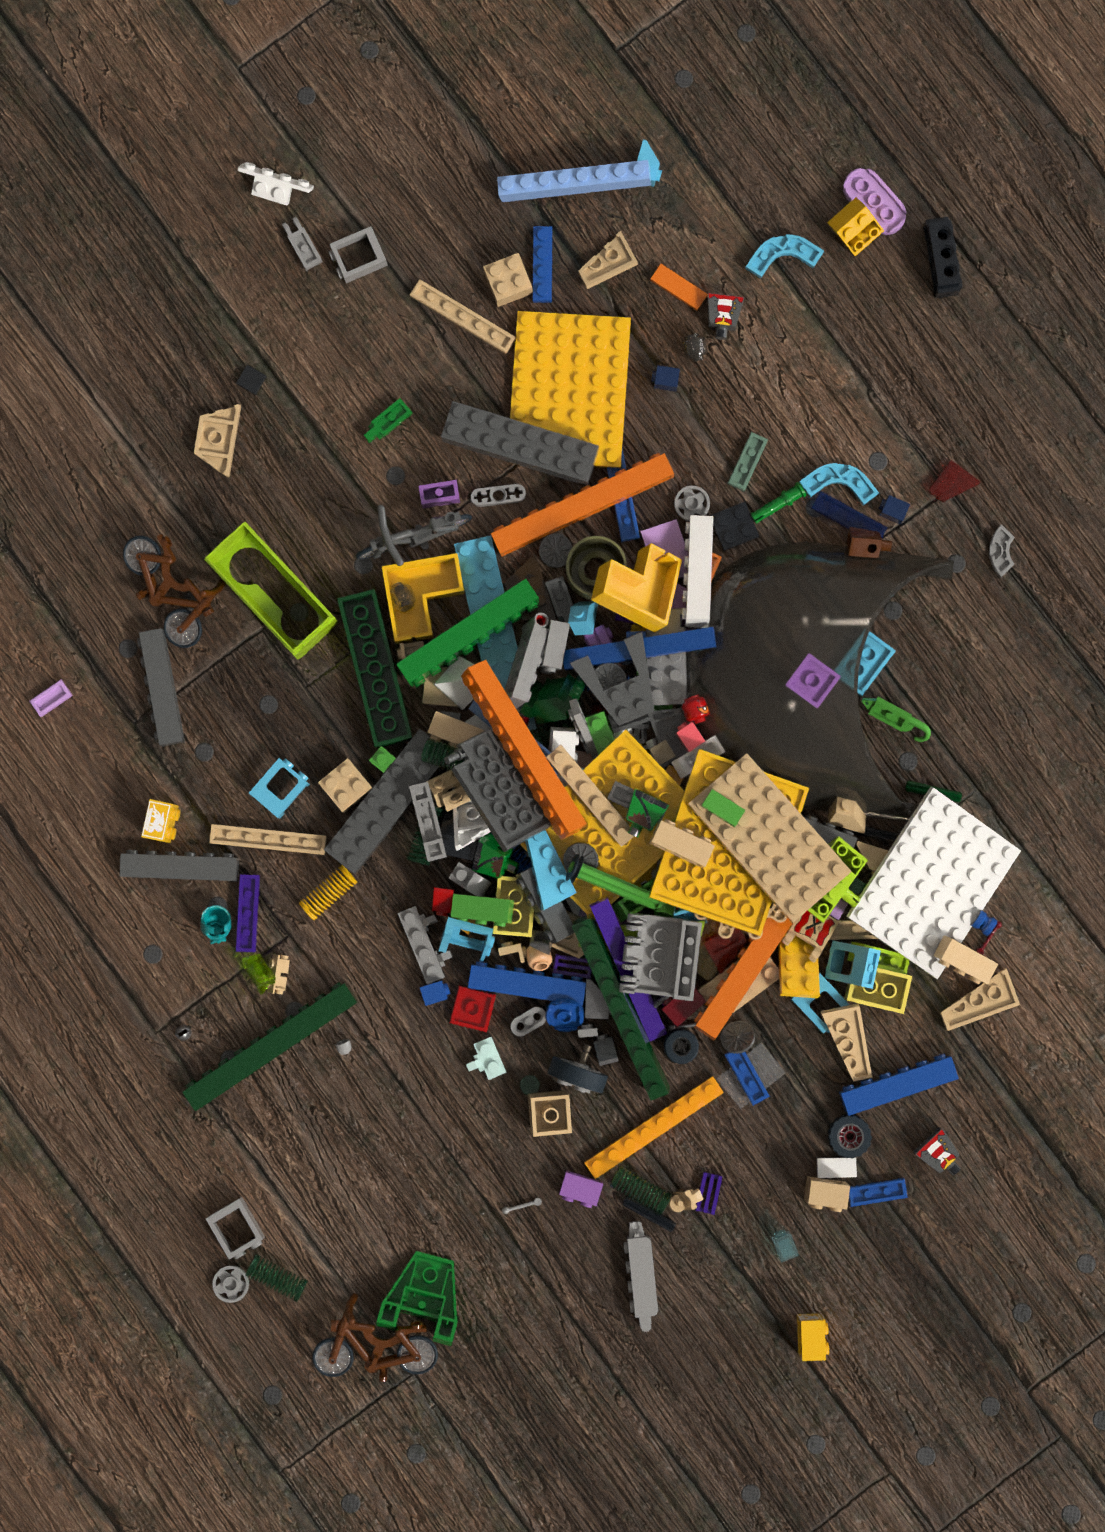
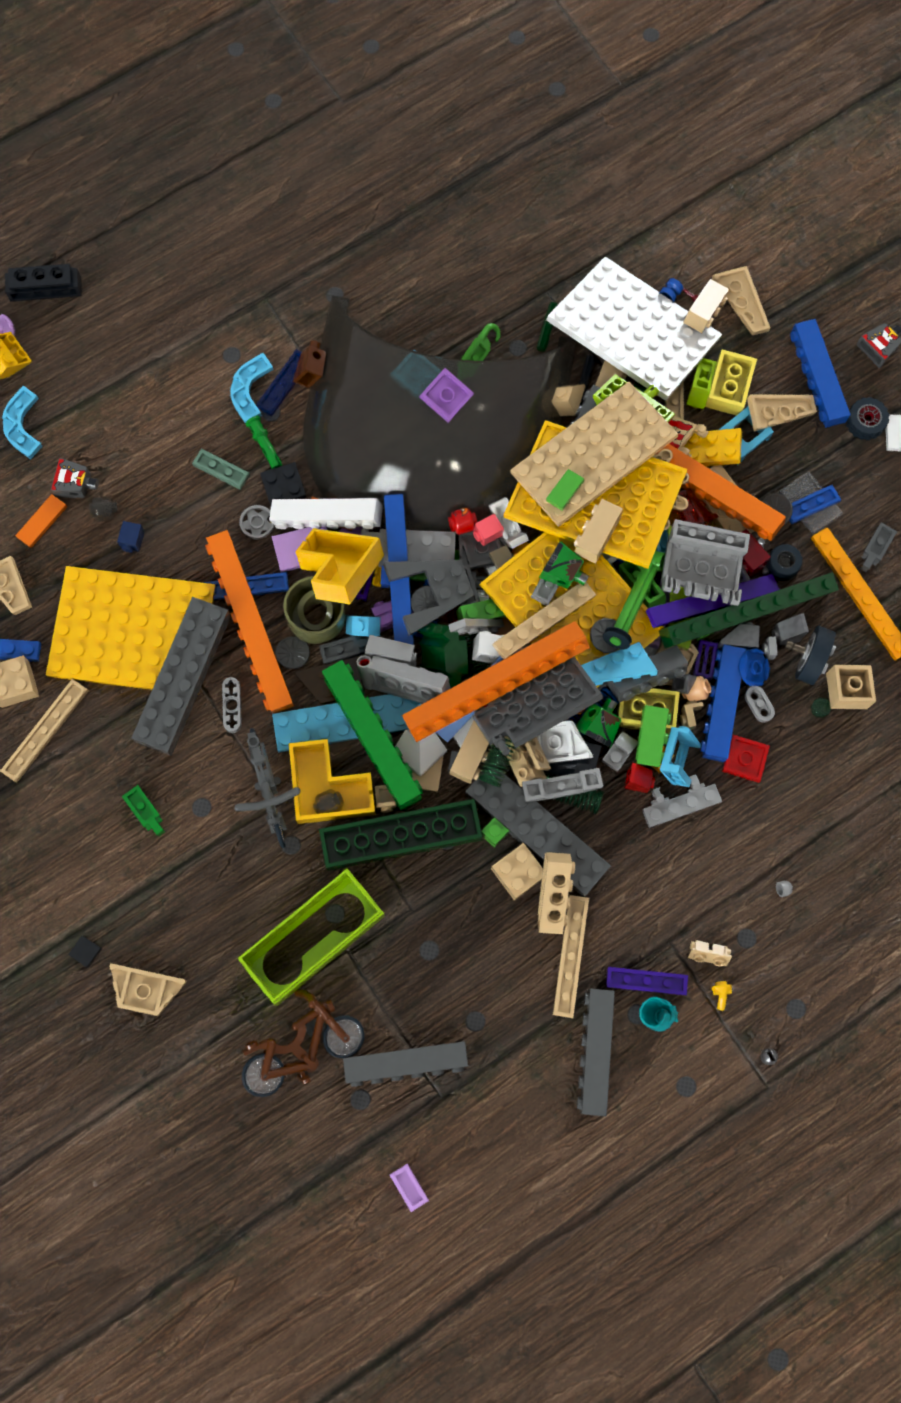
camera: 90 degrees left, 10 degrees down
(160, 821) = (549, 1068): yellow brick -> none
(243, 985) = (722, 989): none -> yellow plate
(258, 972) = (709, 970): clear neon green tile -> none
(269, 1047) = (786, 965): dark green brick -> none
(271, 801) = (529, 952): medium azure window -> none
(310, 911) = (648, 914): yellow piece -> none
(322, 818) = (554, 892): none -> tan brick
(435, 992) = (731, 793): blue brick -> none
(439, 494) = (225, 760): medium lavender brick -> none
(487, 1059) = (796, 747): light aqua hinge -> none
(706, 1145) = (877, 546): none -> dark grey hinge
(863, 967) = (714, 388): medium azure window -> none
(893, 509) = (280, 341): dark blue brick -> none
(952, 482) = (258, 291): clear red wing -> none
(999, 551) = (326, 256): light grey tile -> none

